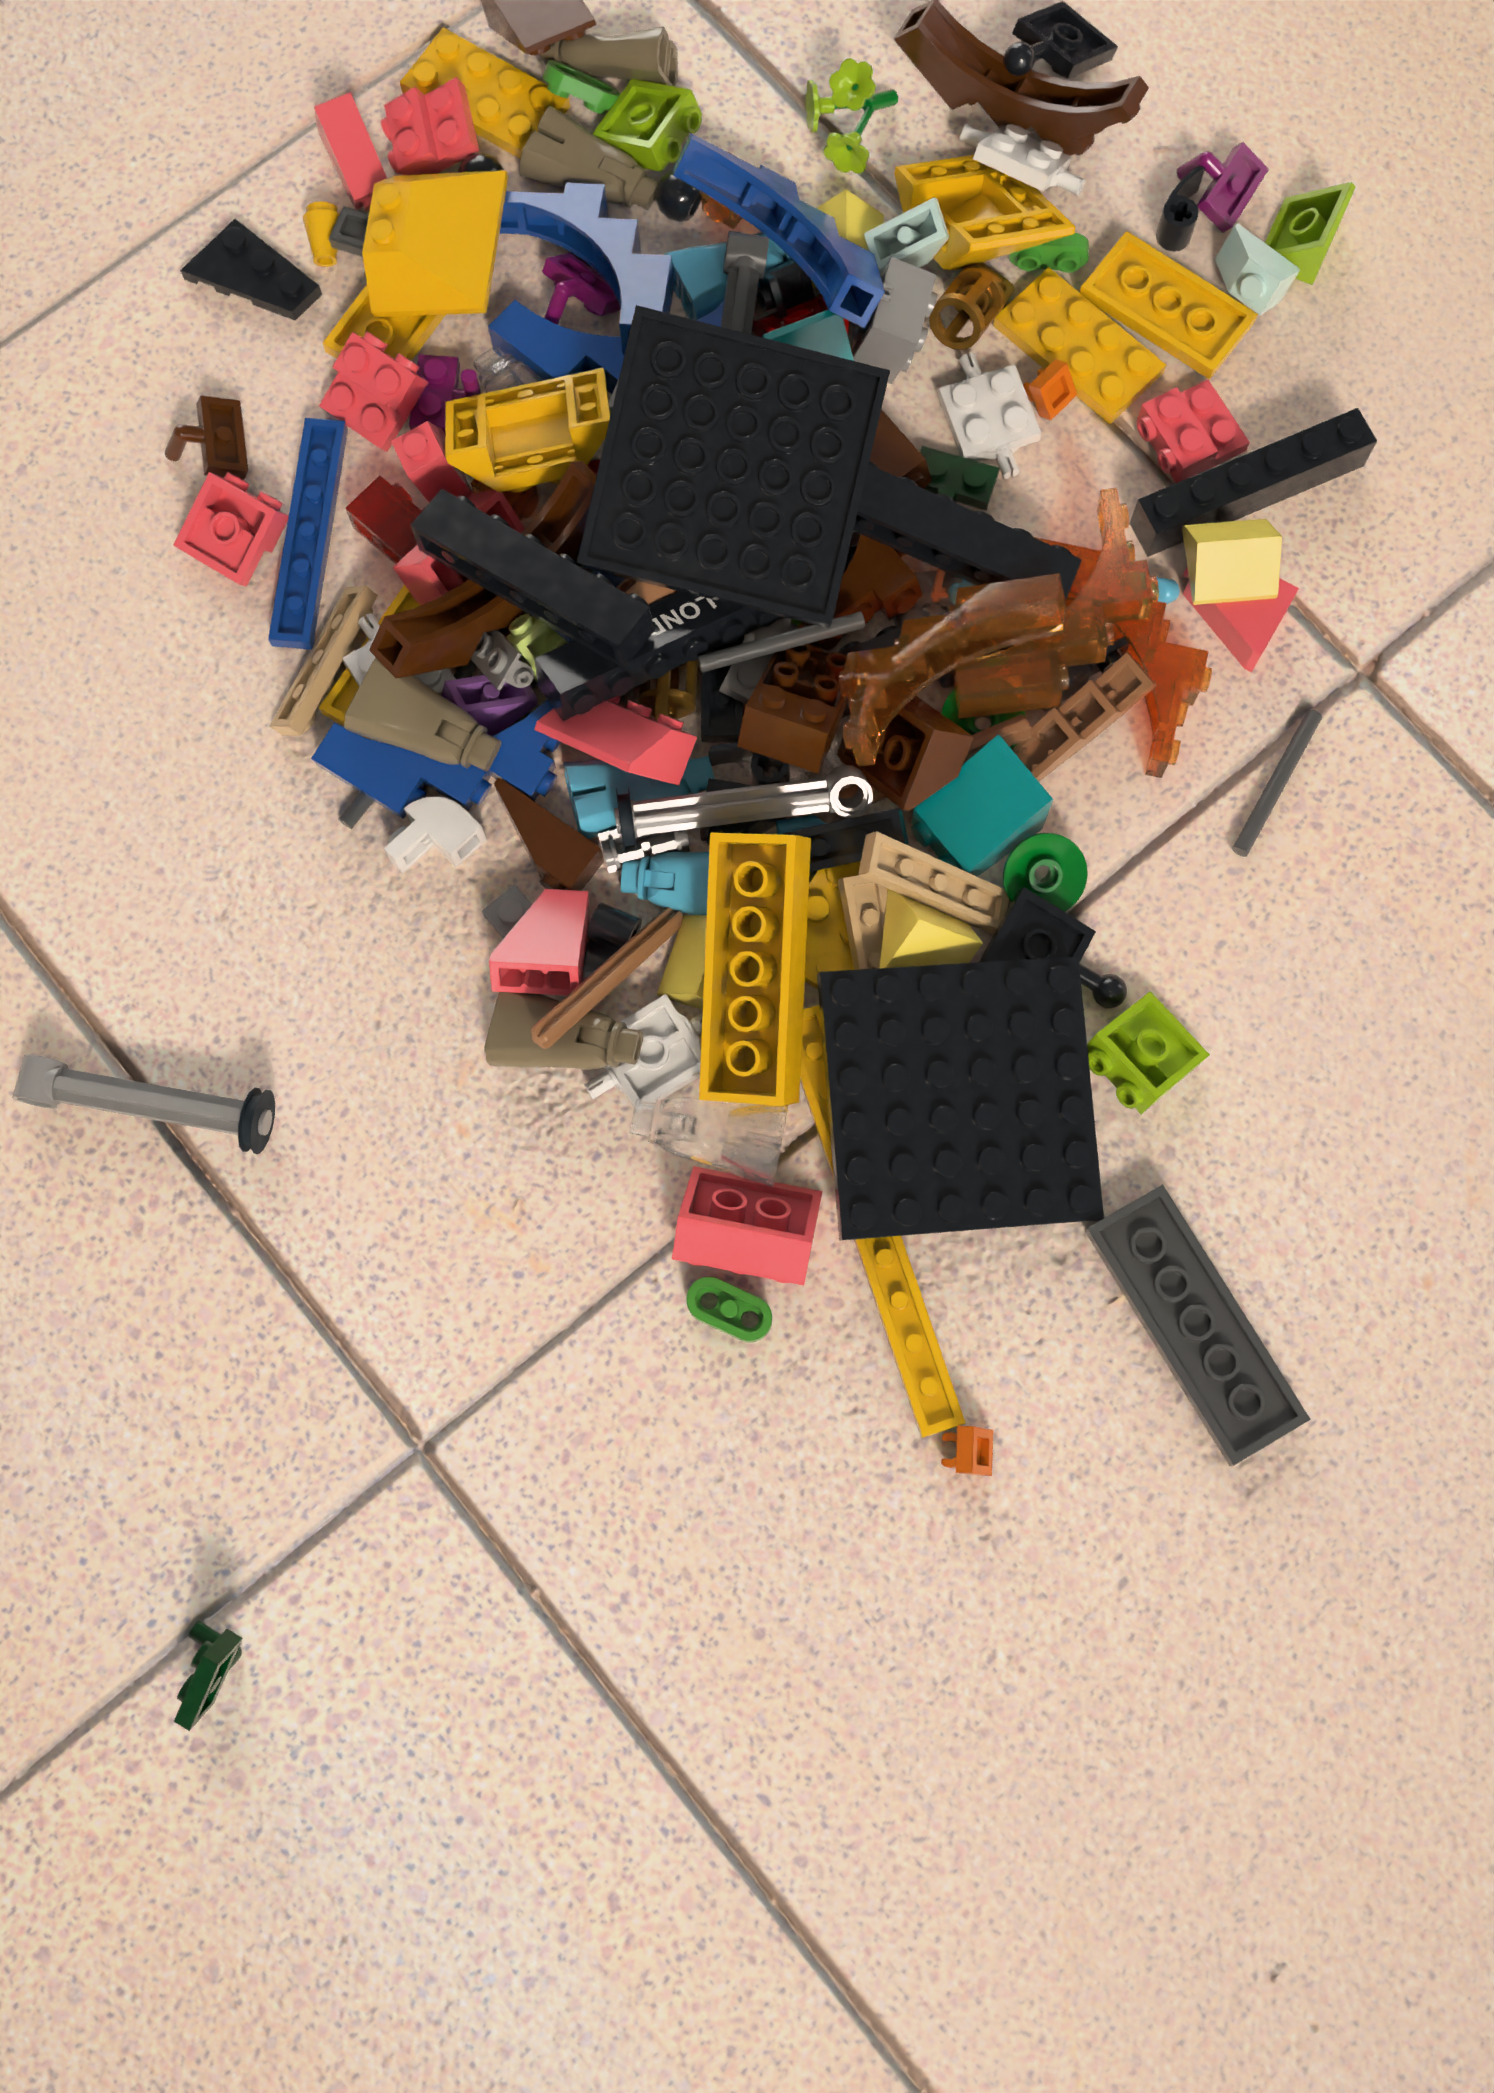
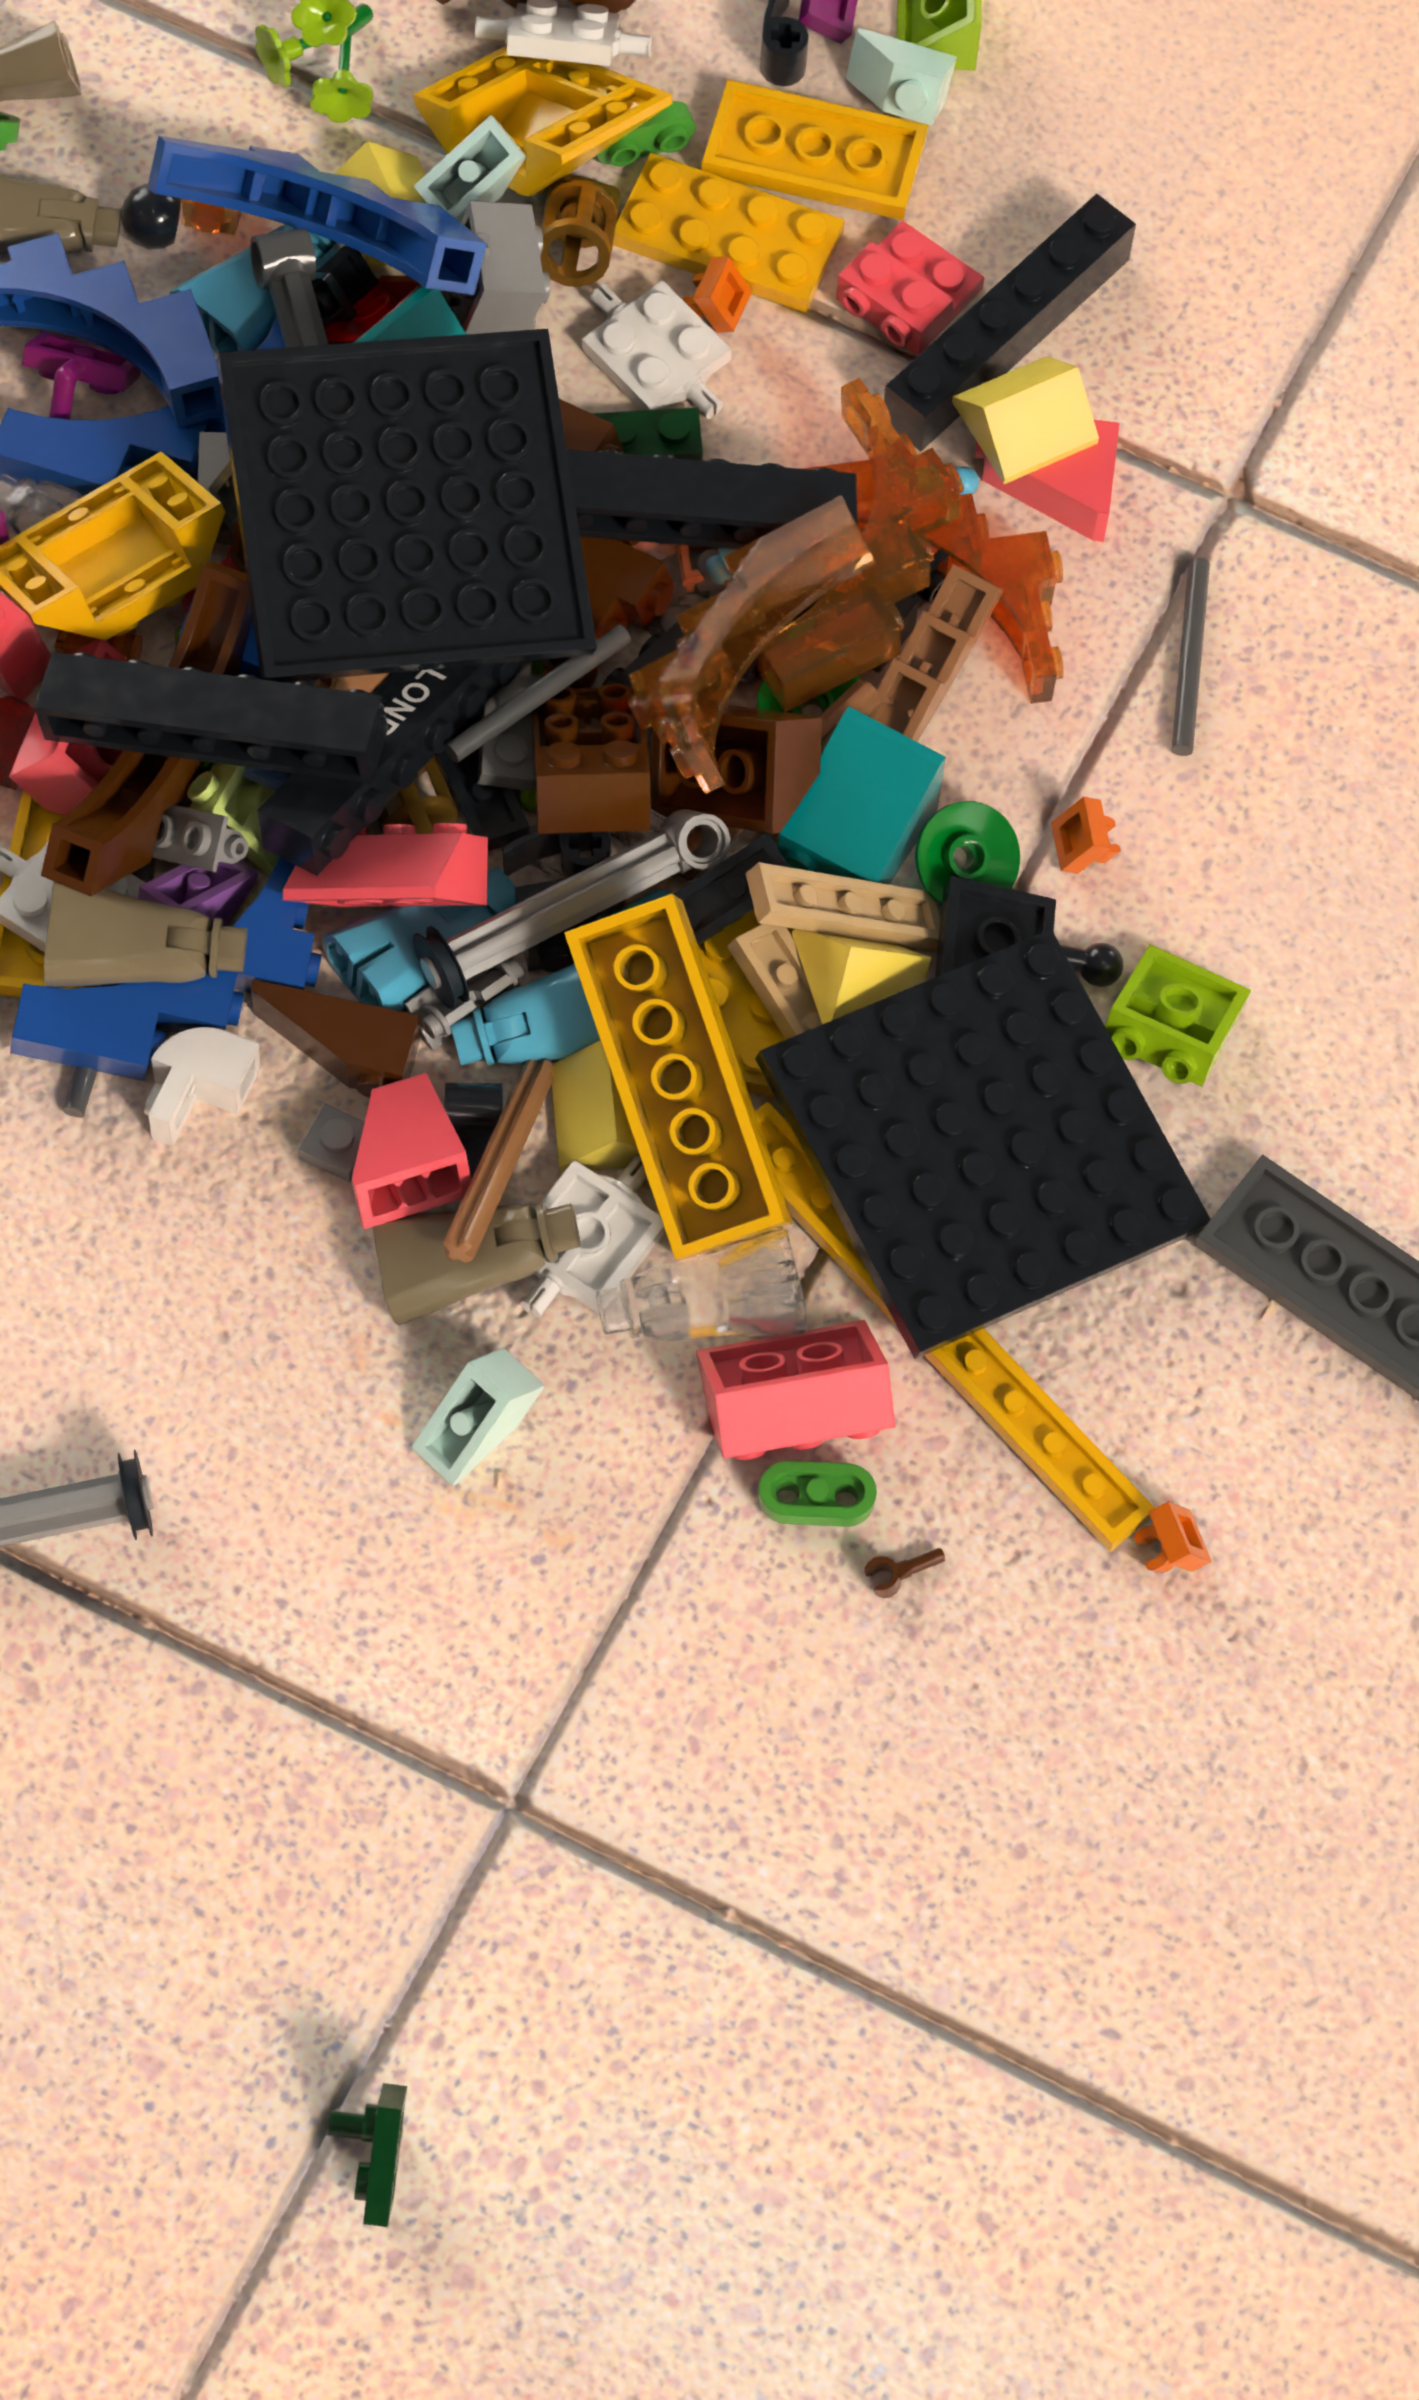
camera: 30 degrees left, 10 degrees down
(518, 1154) = (477, 1414): none -> light aqua slope
(651, 122) = (76, 140): lime plate -> none
(768, 1390) = (901, 1570): none -> reddish brown hand
(1136, 890) = (1083, 836): none -> orange tile

